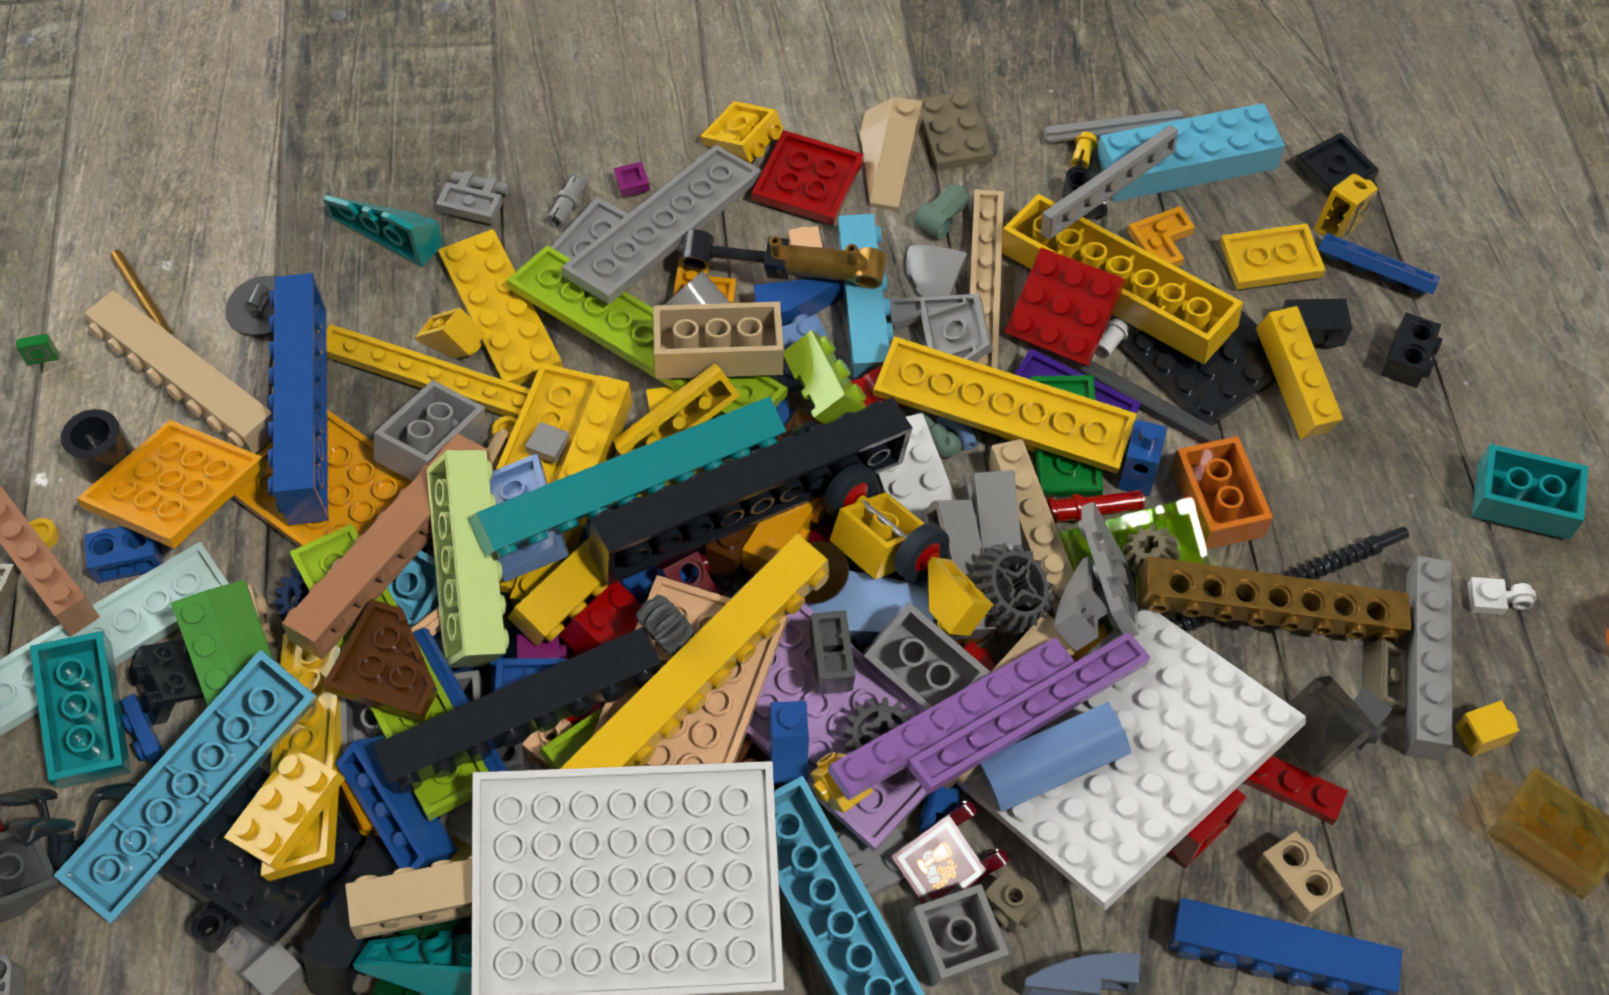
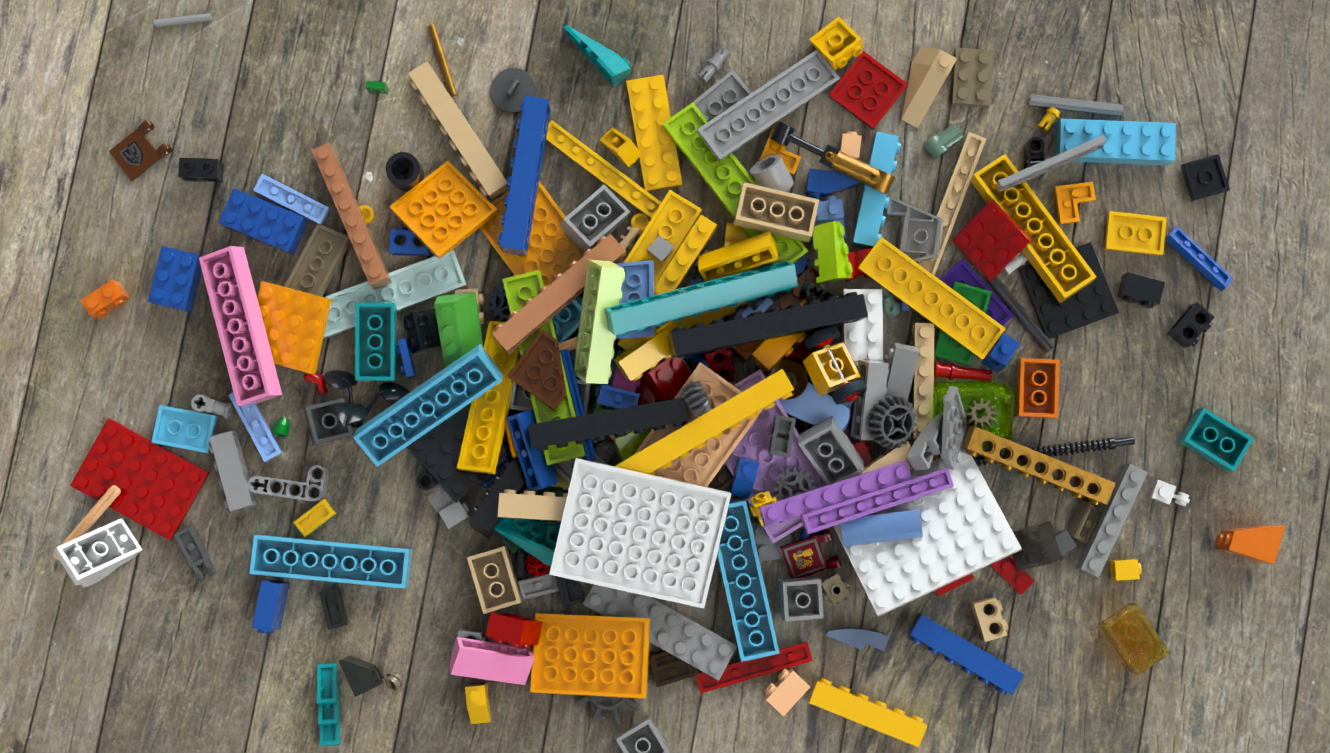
camera: 20 degrees right, 25 degrees up
(284, 808) = (474, 435): yellow plate -> none
(472, 203) = (654, 50): light grey plate -> none
(631, 179) = (757, 60): magenta plate -> none
(934, 269) = (923, 184): light grey brick -> none
(954, 598) = (858, 423): yellow slope -> none
(1299, 373) = (1114, 325): yellow brick -> none
(1350, 196) = (1197, 213): yellow torso -> none

